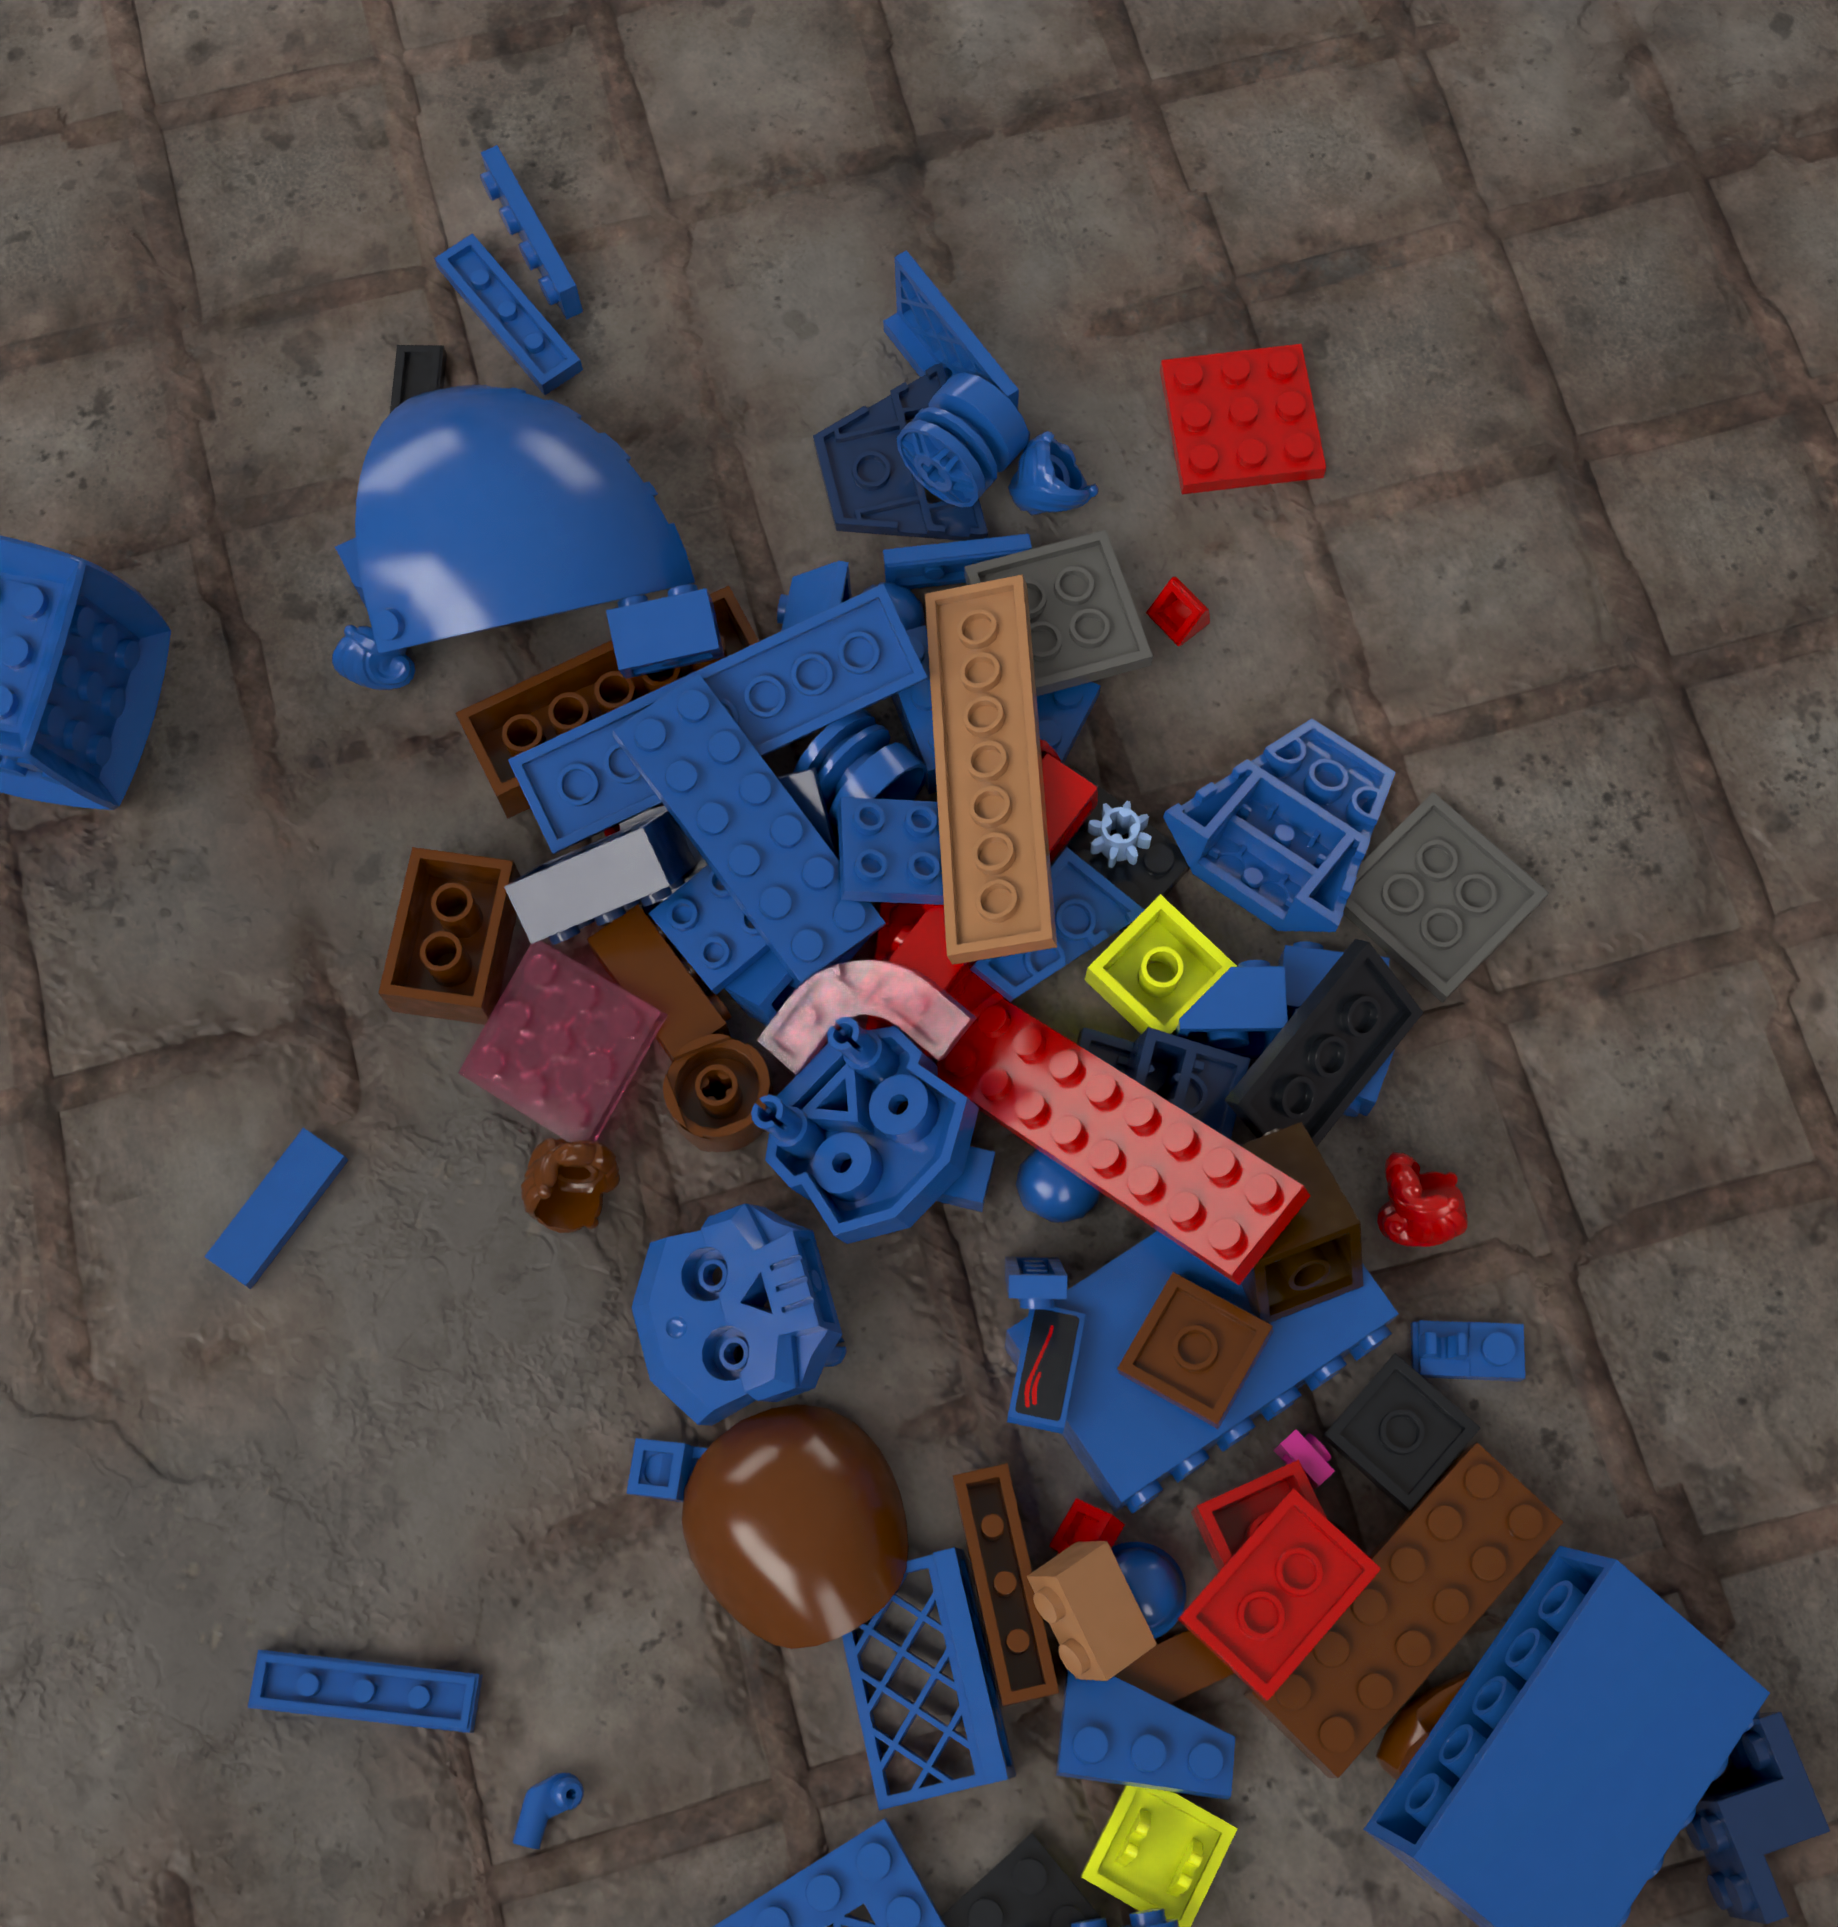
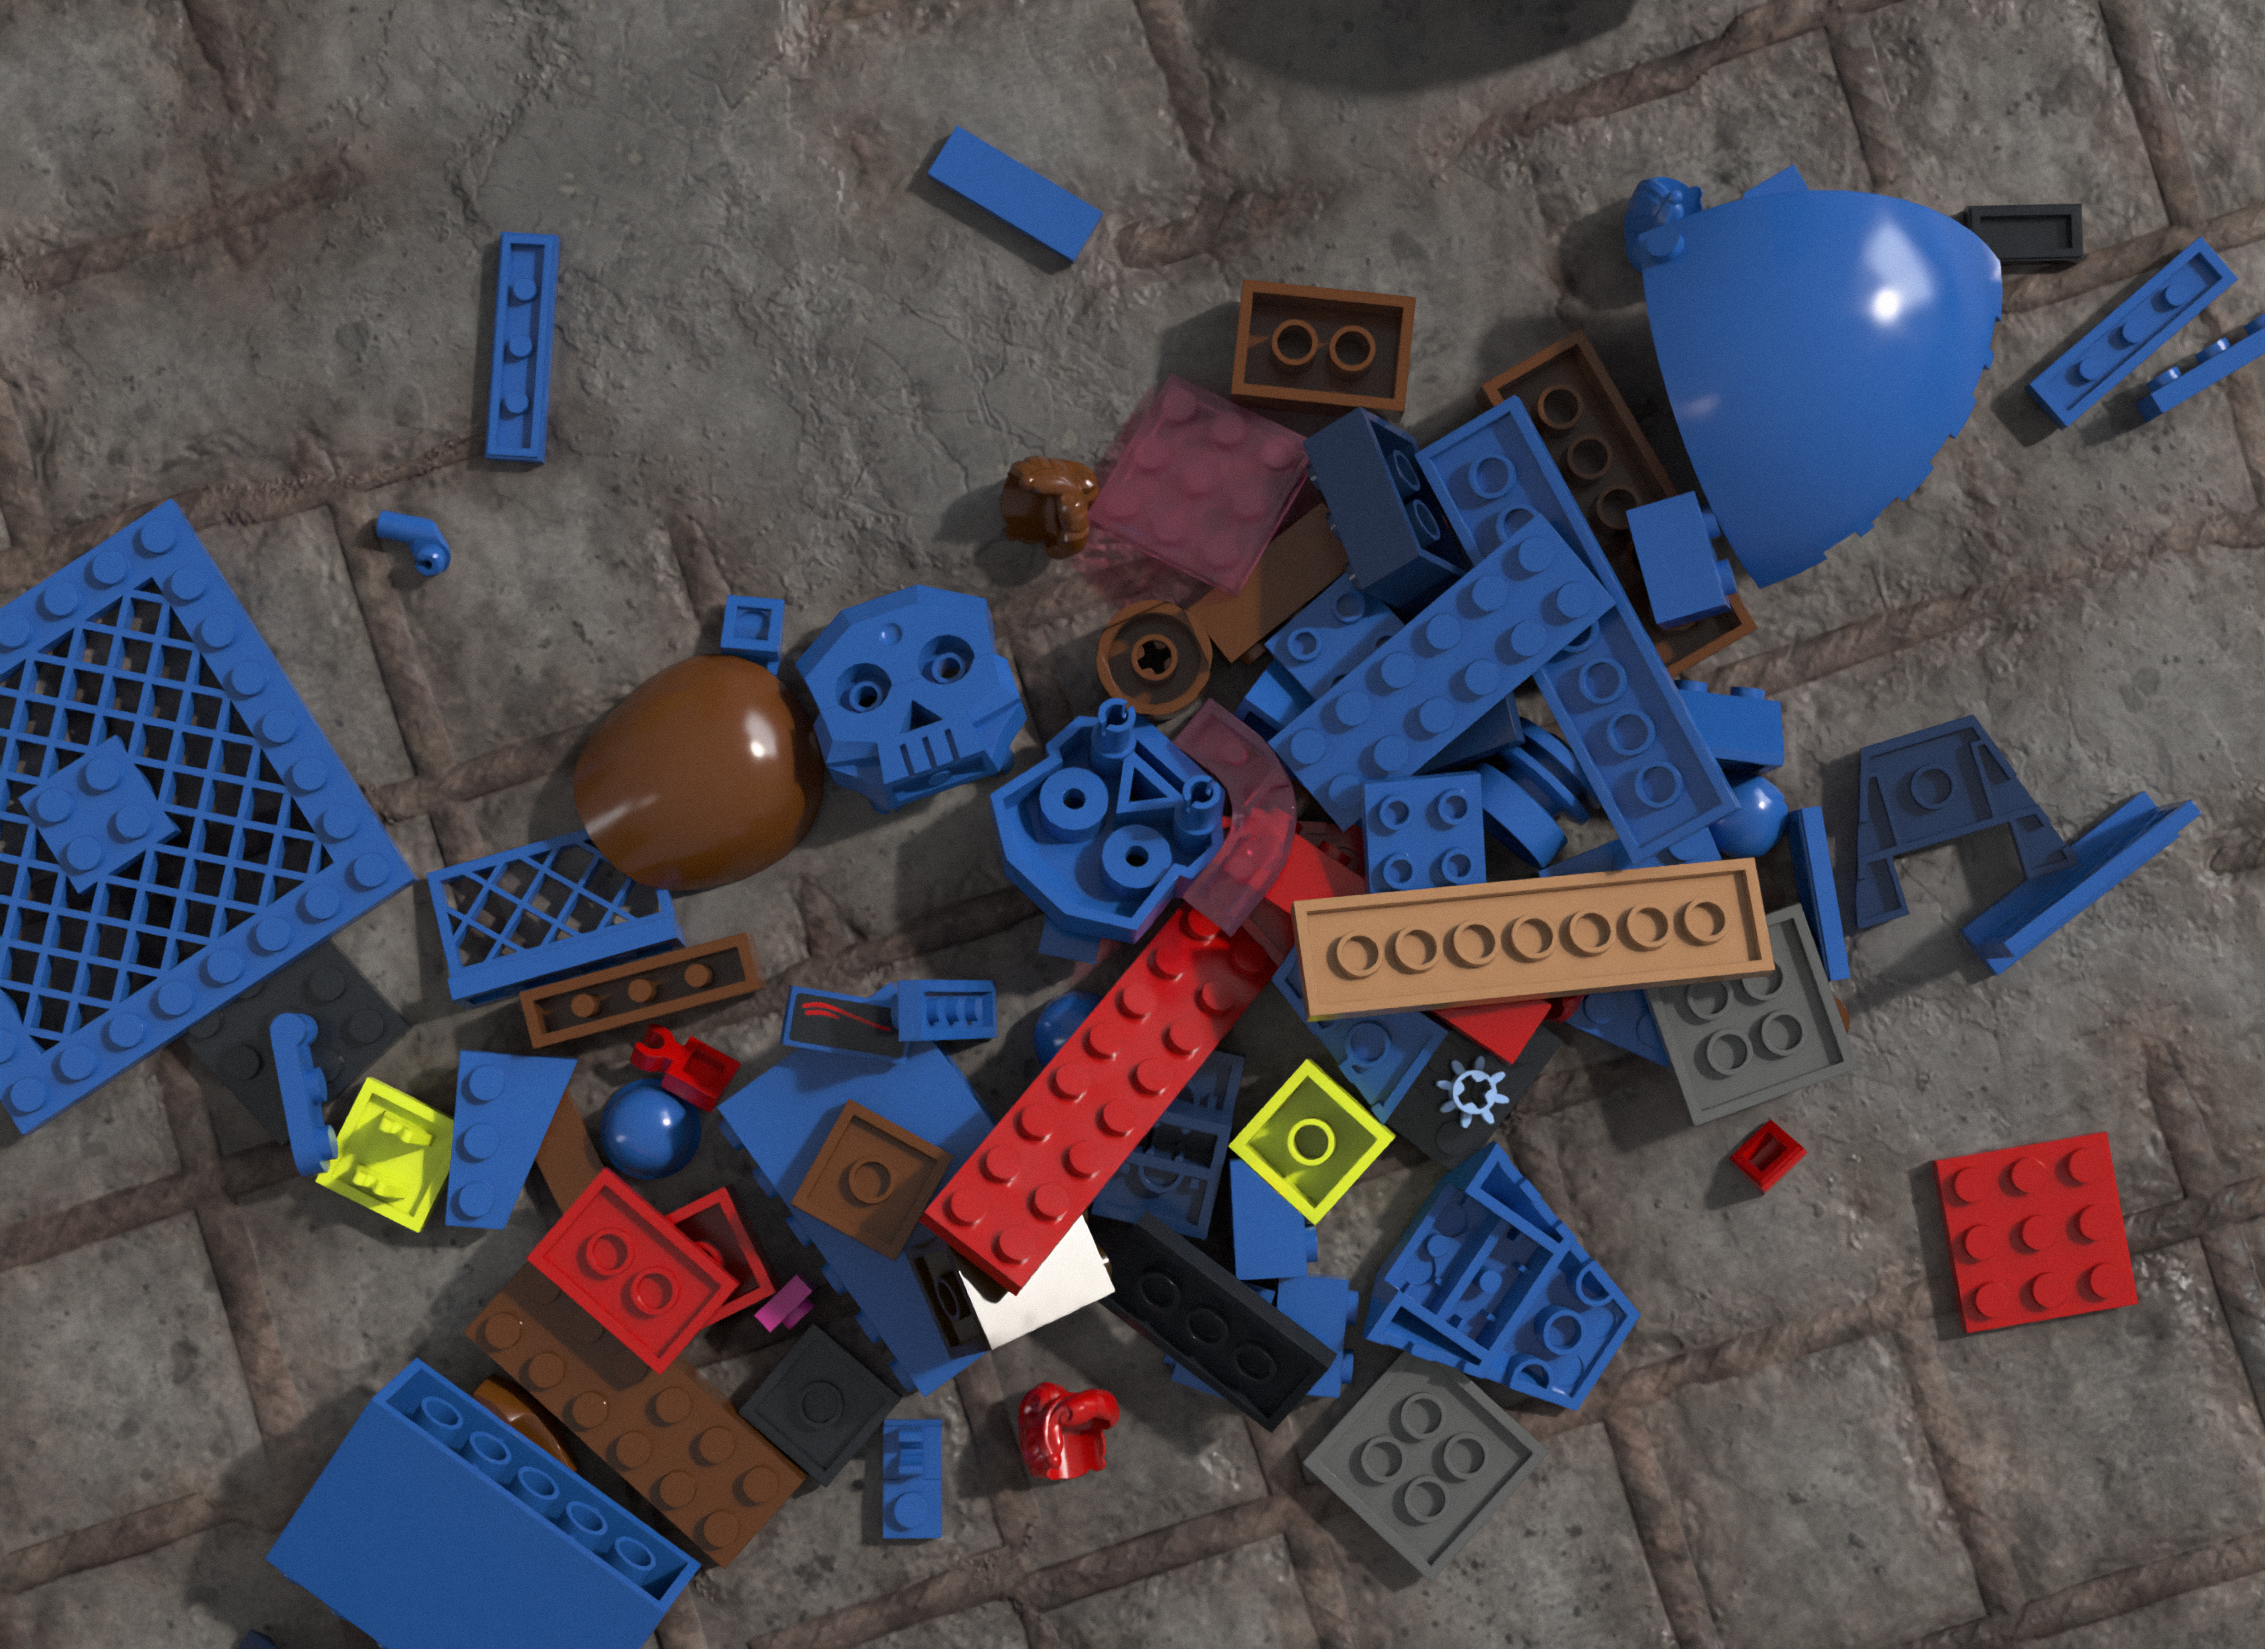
camera: 85 degrees right, 15 degrees up
(962, 439) = (1968, 899): blue wheel -> none
(1049, 478) = (1931, 1001): blue hair -> none
(1091, 1611) = (613, 1078): medium nougat brick -> none

